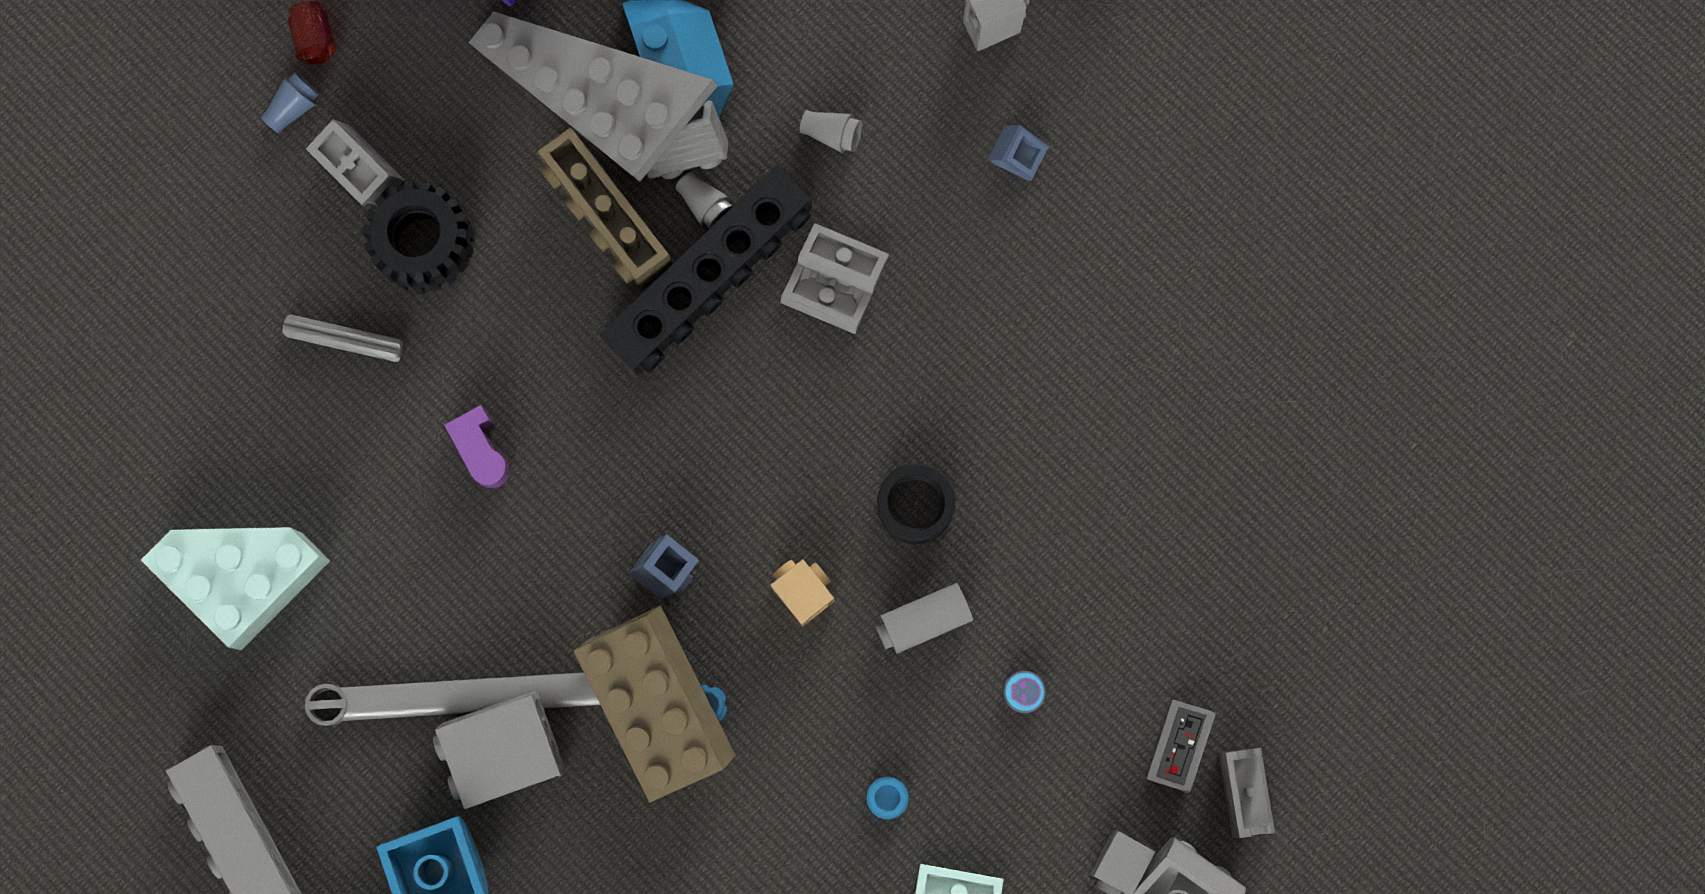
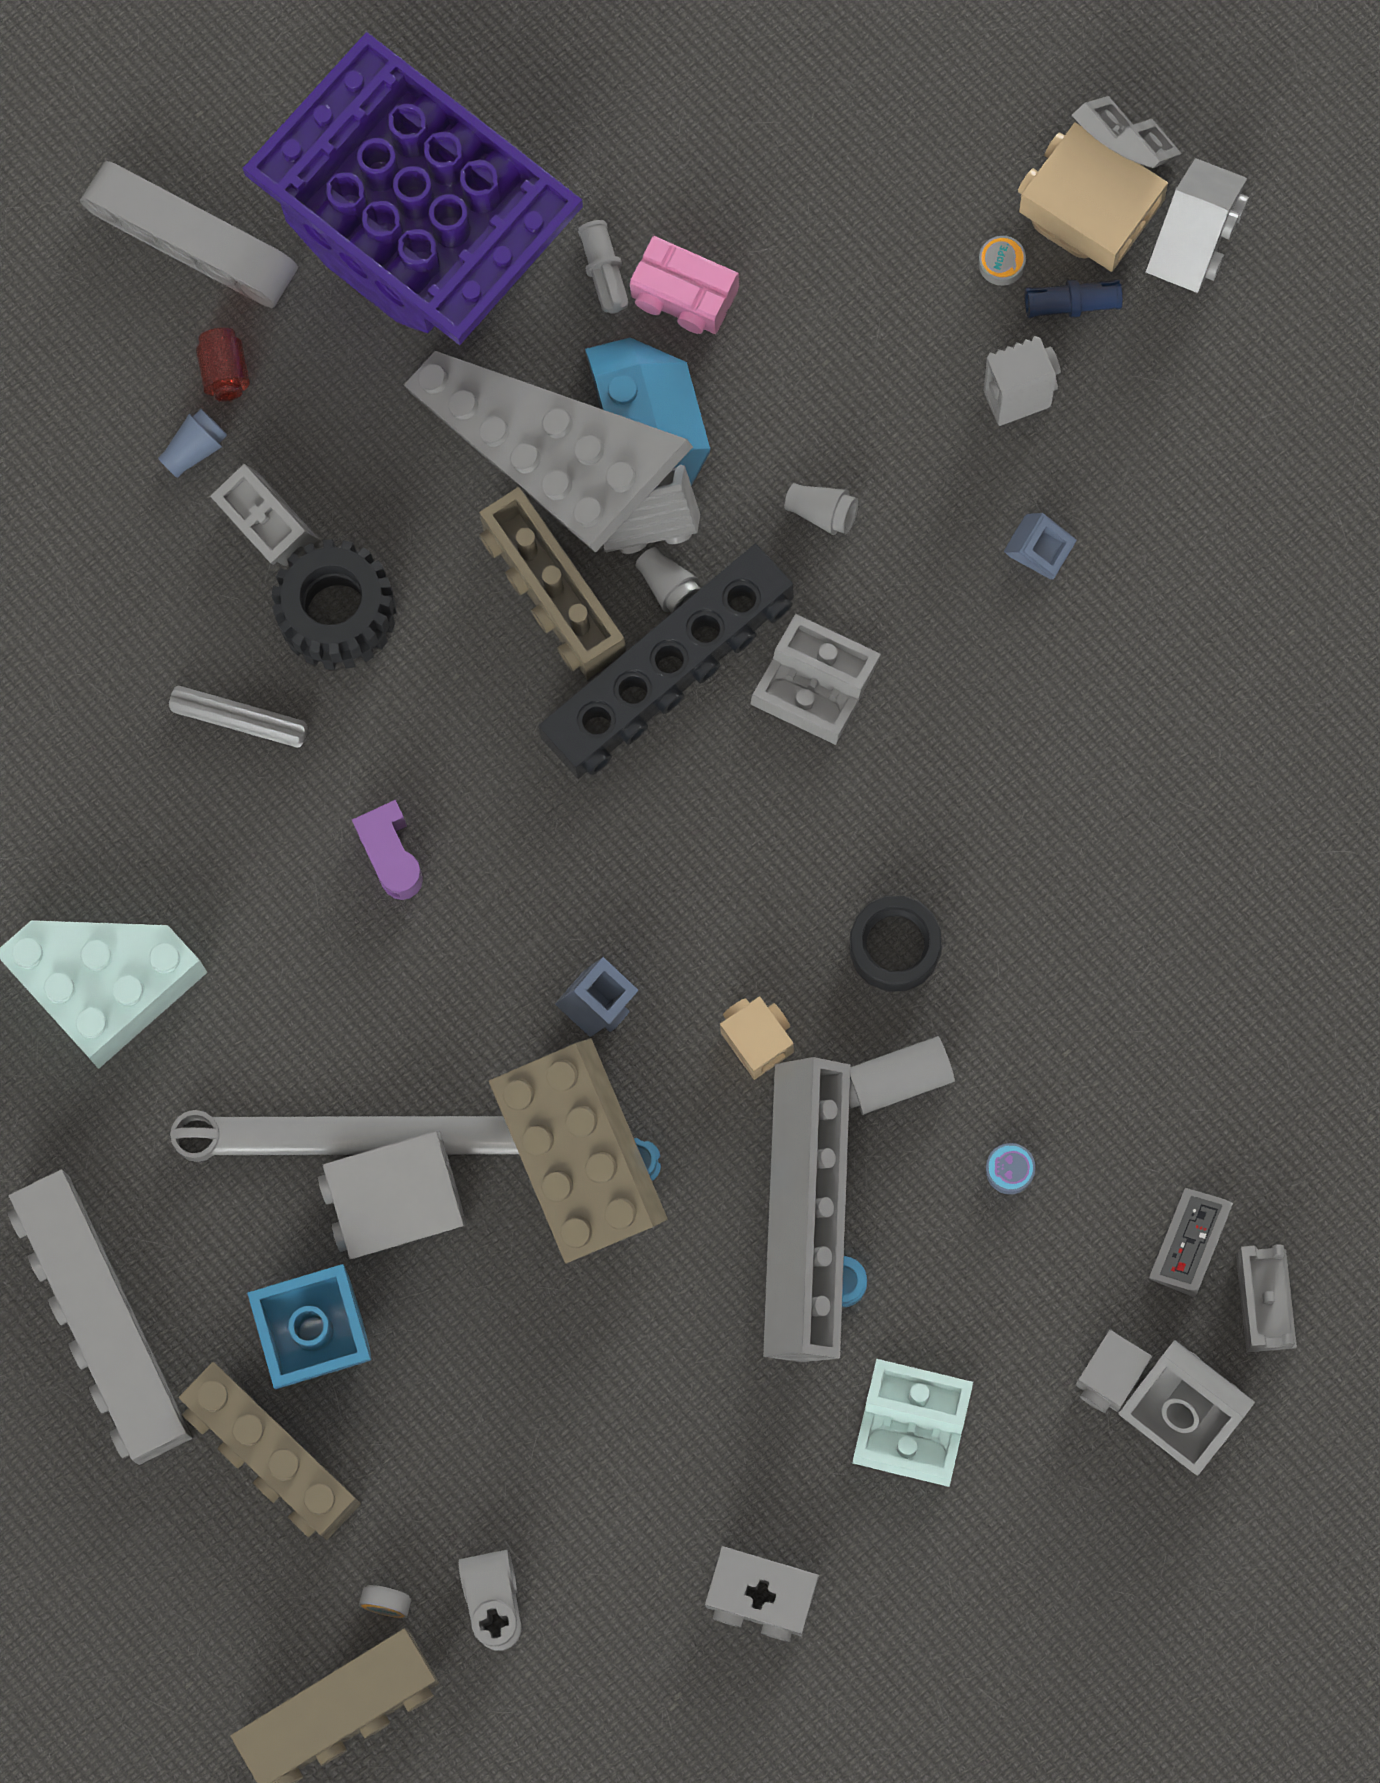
camera: 10 degrees right, 5 degrees down
(854, 742) = (807, 1210): none -> light grey brick

